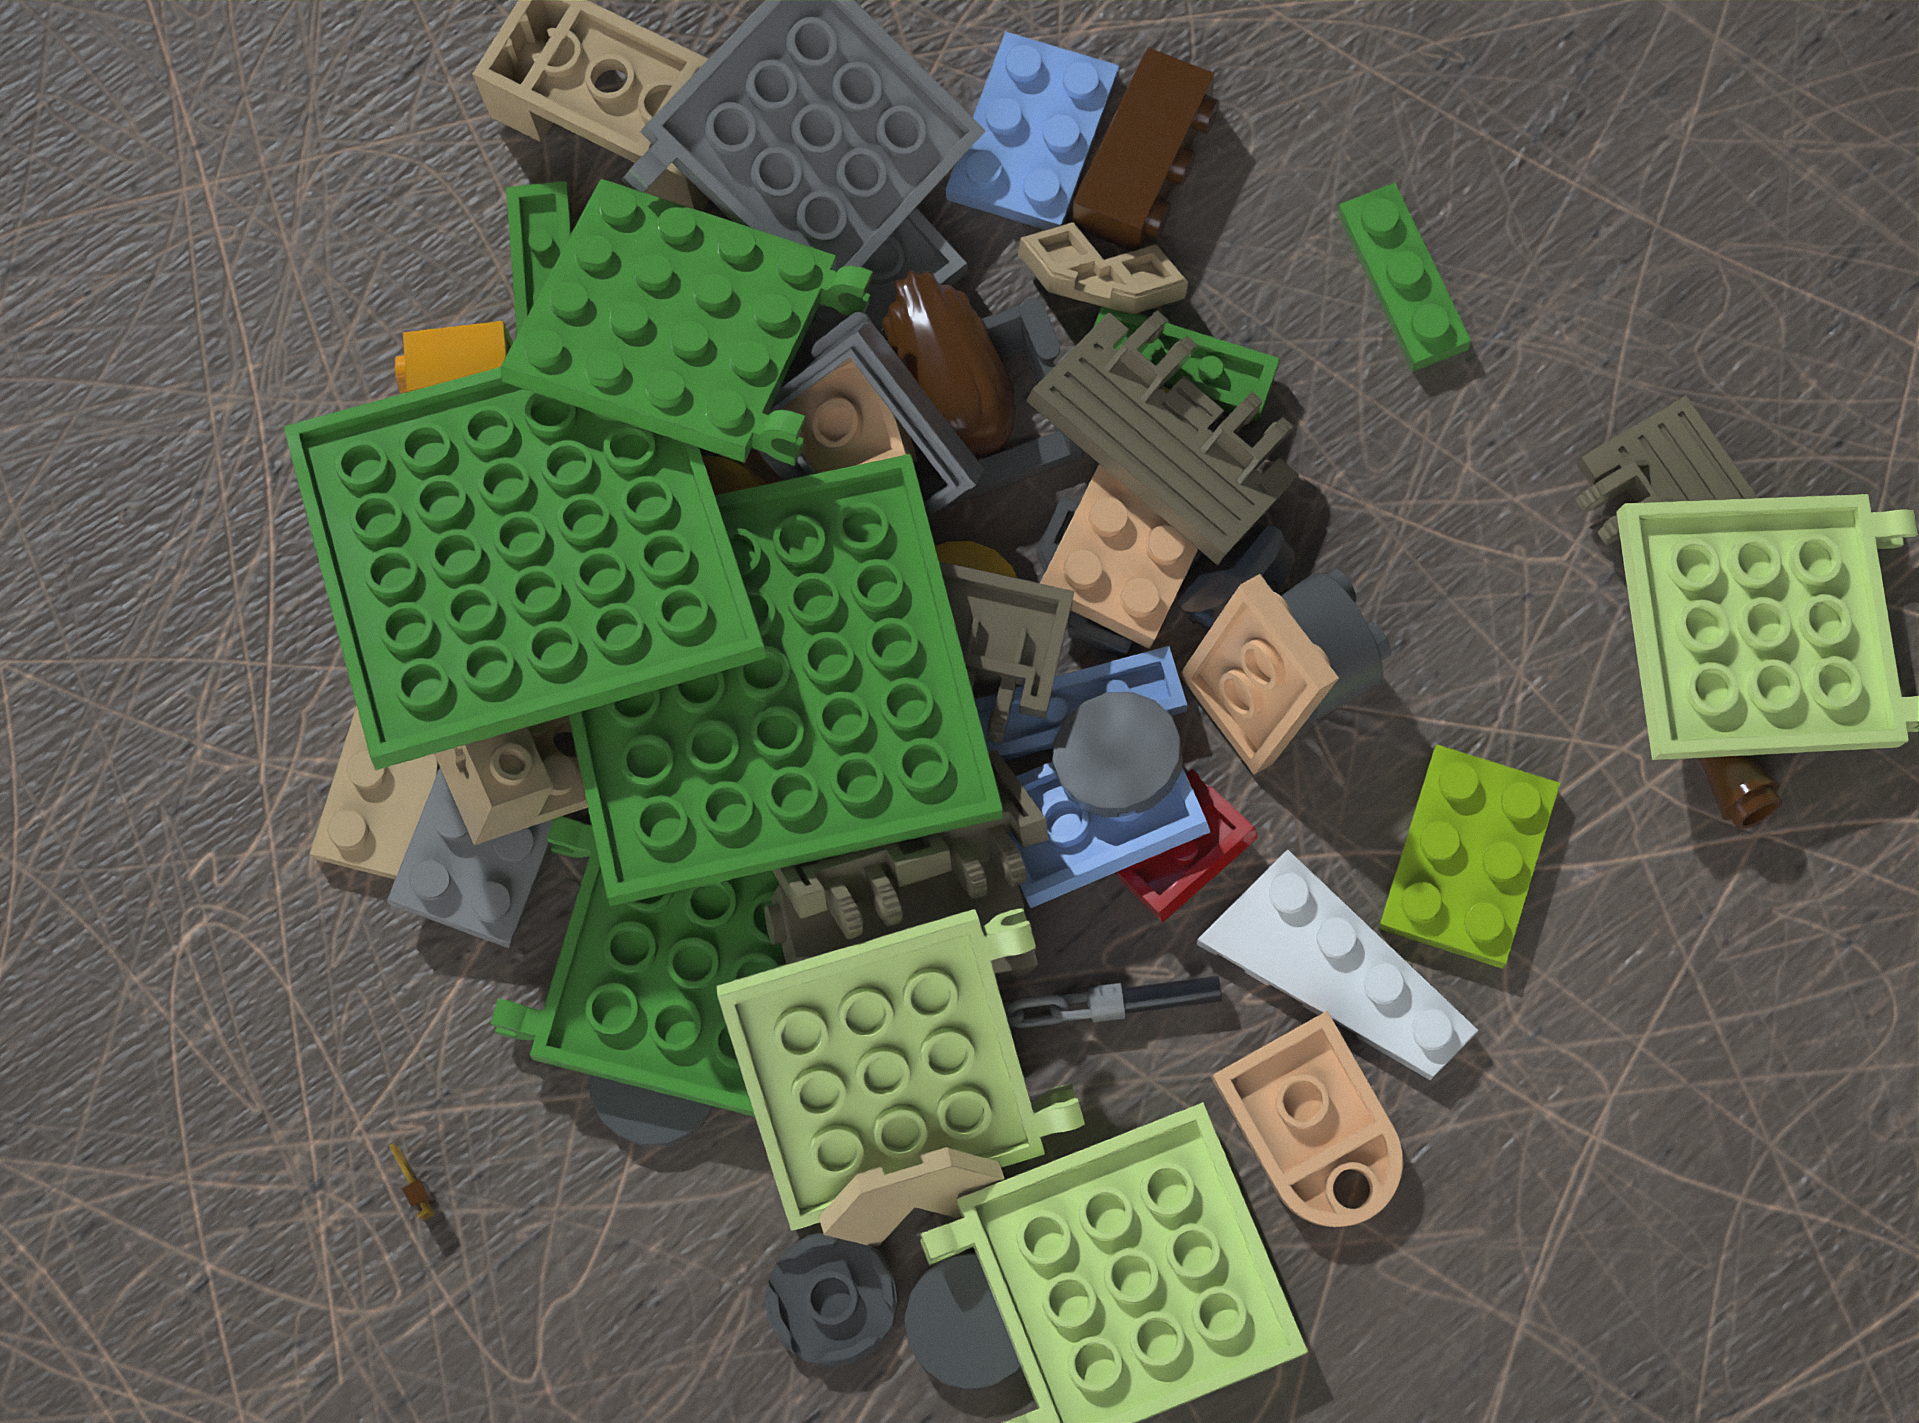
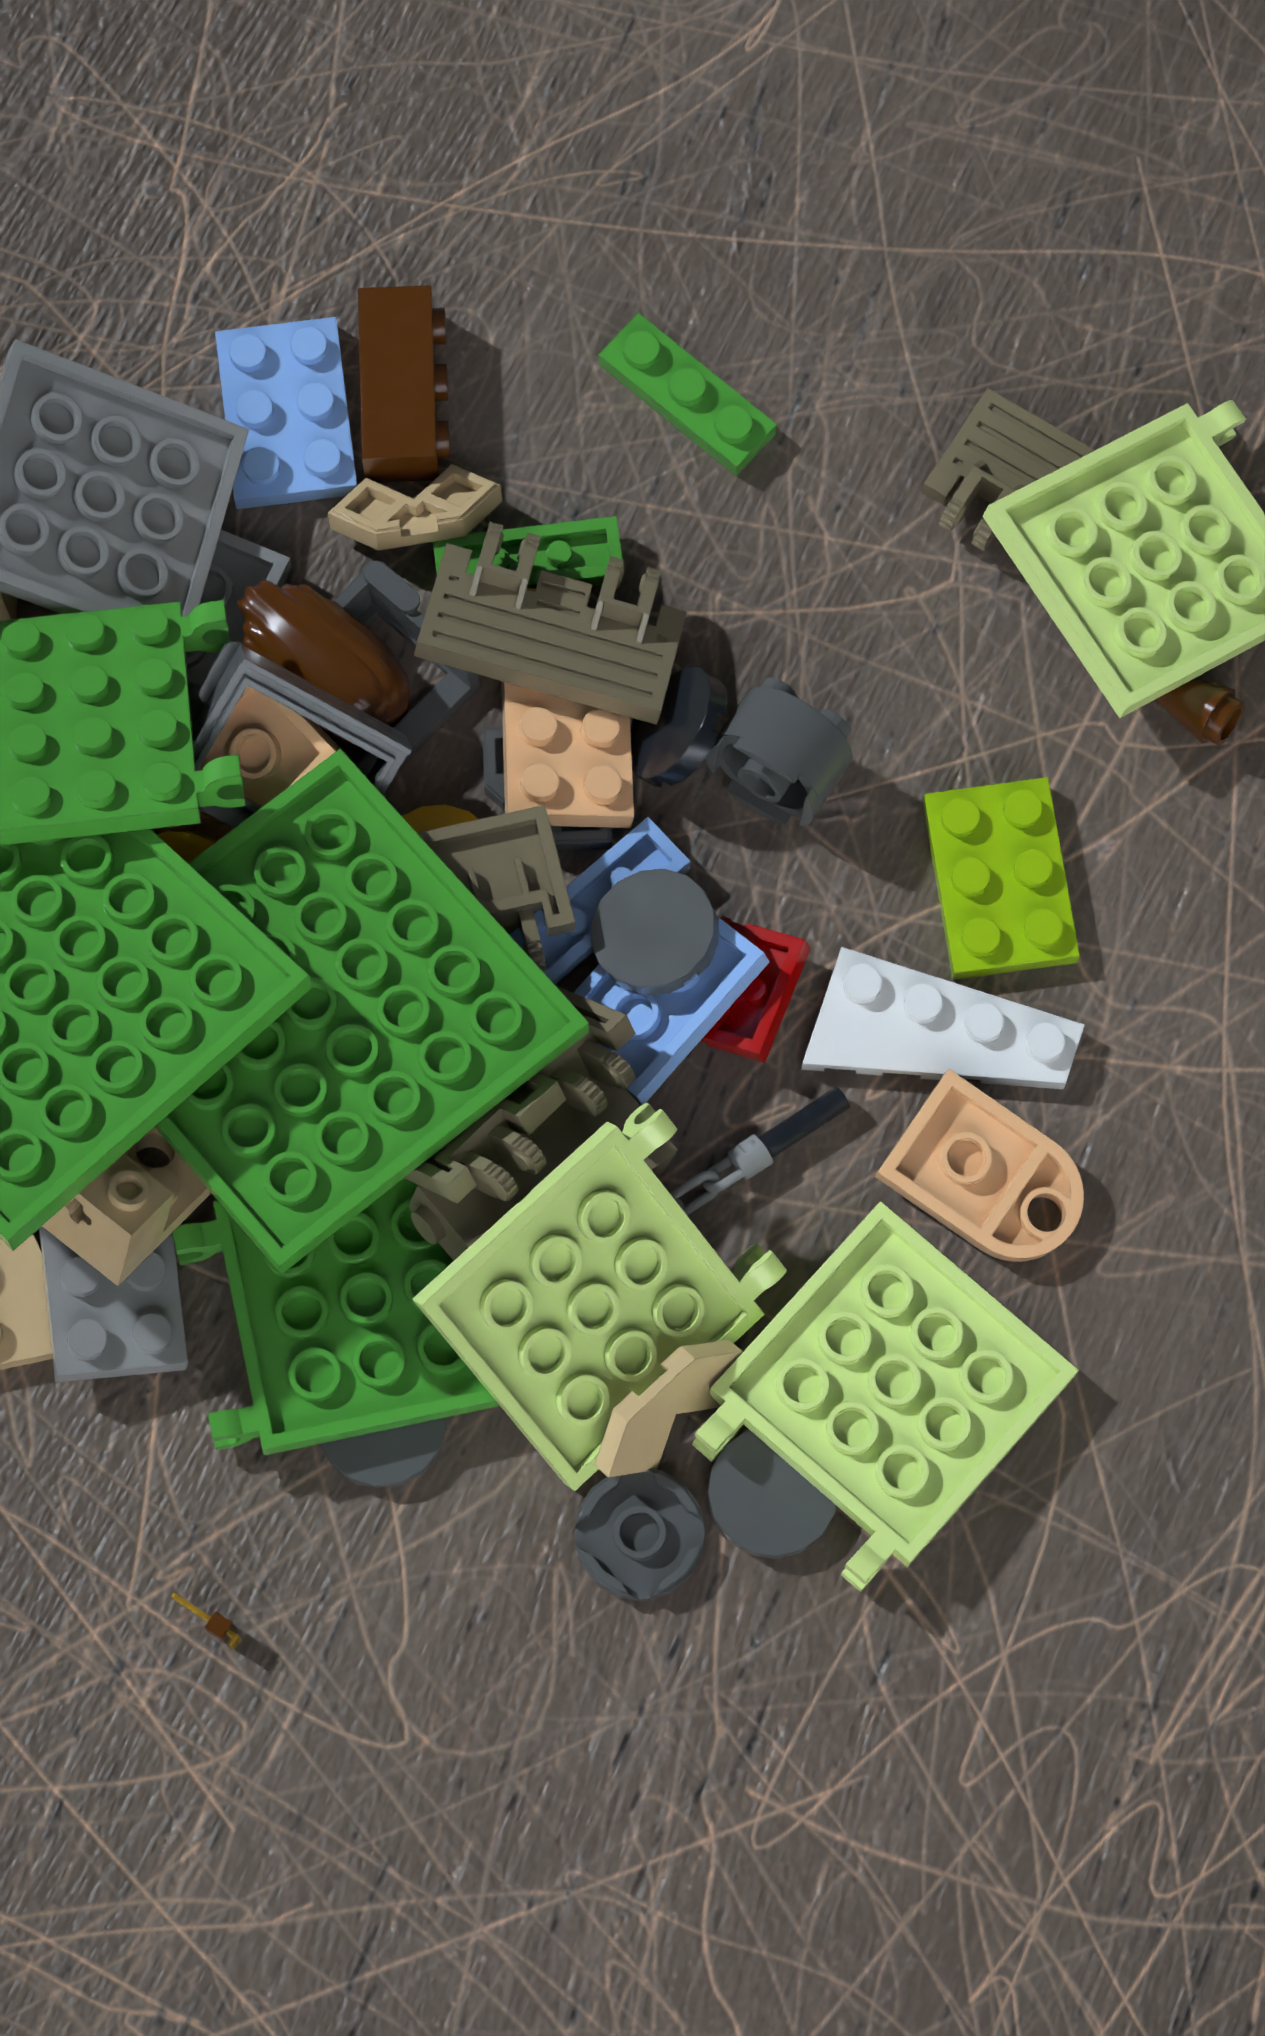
camera: 35 degrees left, 0 degrees up
(1258, 674) = (745, 802): light nougat plate -> none

